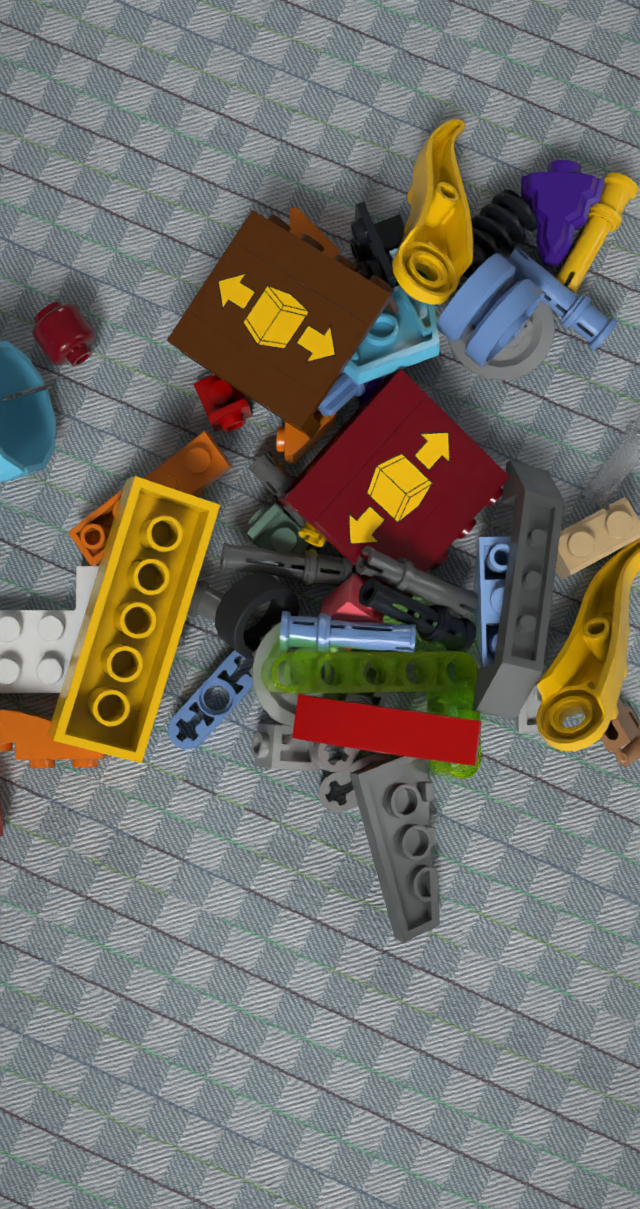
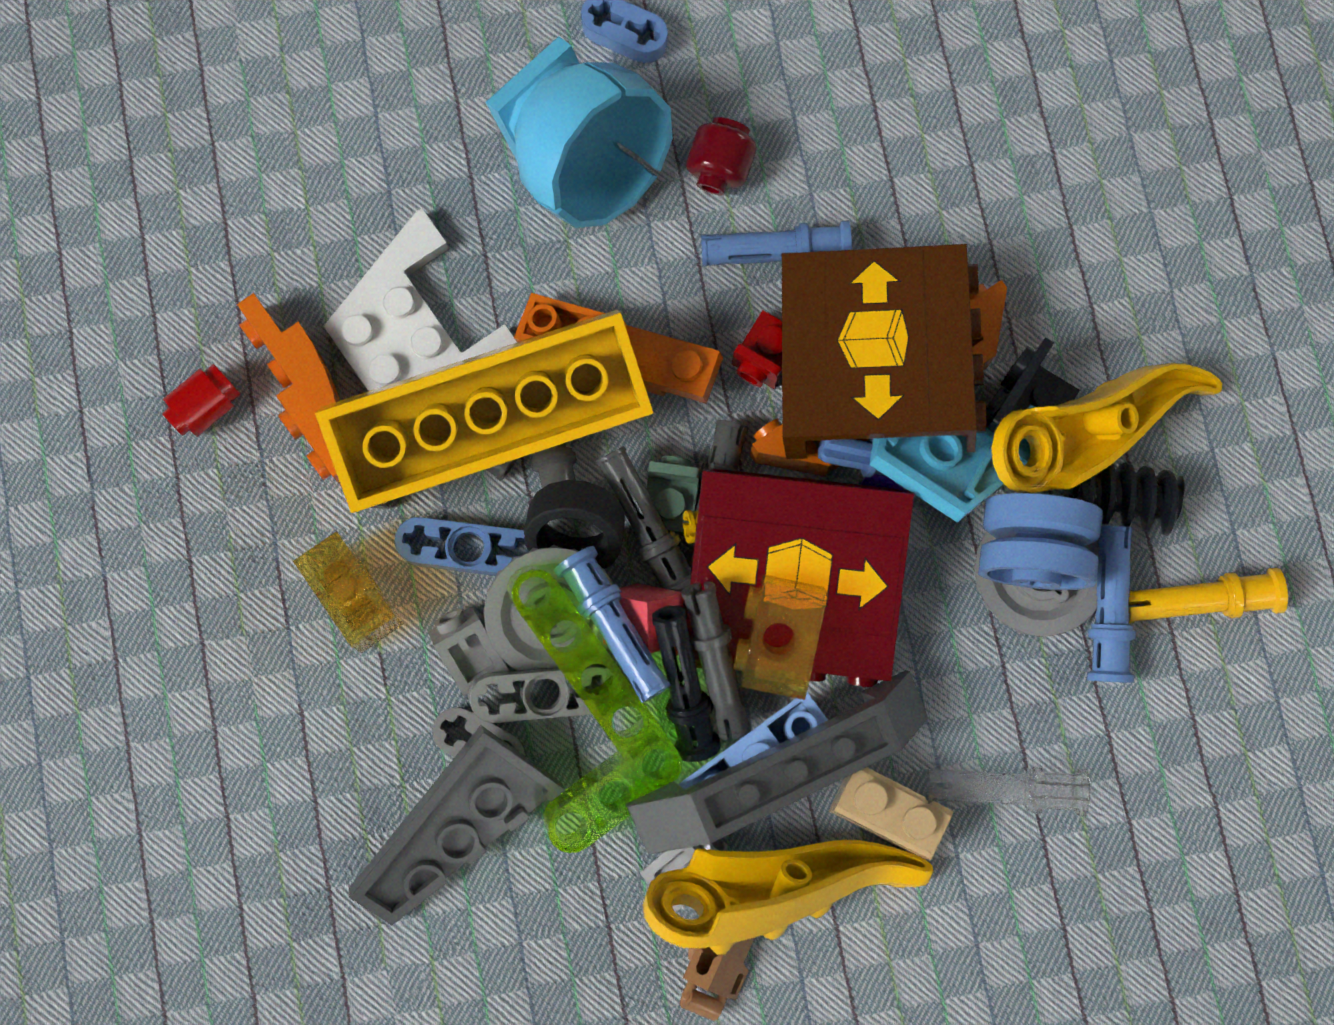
camera: 50 degrees right, 5 degrees down
(154, 343) = (769, 246): none -> medium blue pin
(191, 802) = (348, 592): none -> clear yellow brick
(387, 730) = (548, 732): red slope -> none
(457, 534) = (789, 667): none -> clear yellow brick
(560, 204) = (1207, 542): dark purple rock -> none

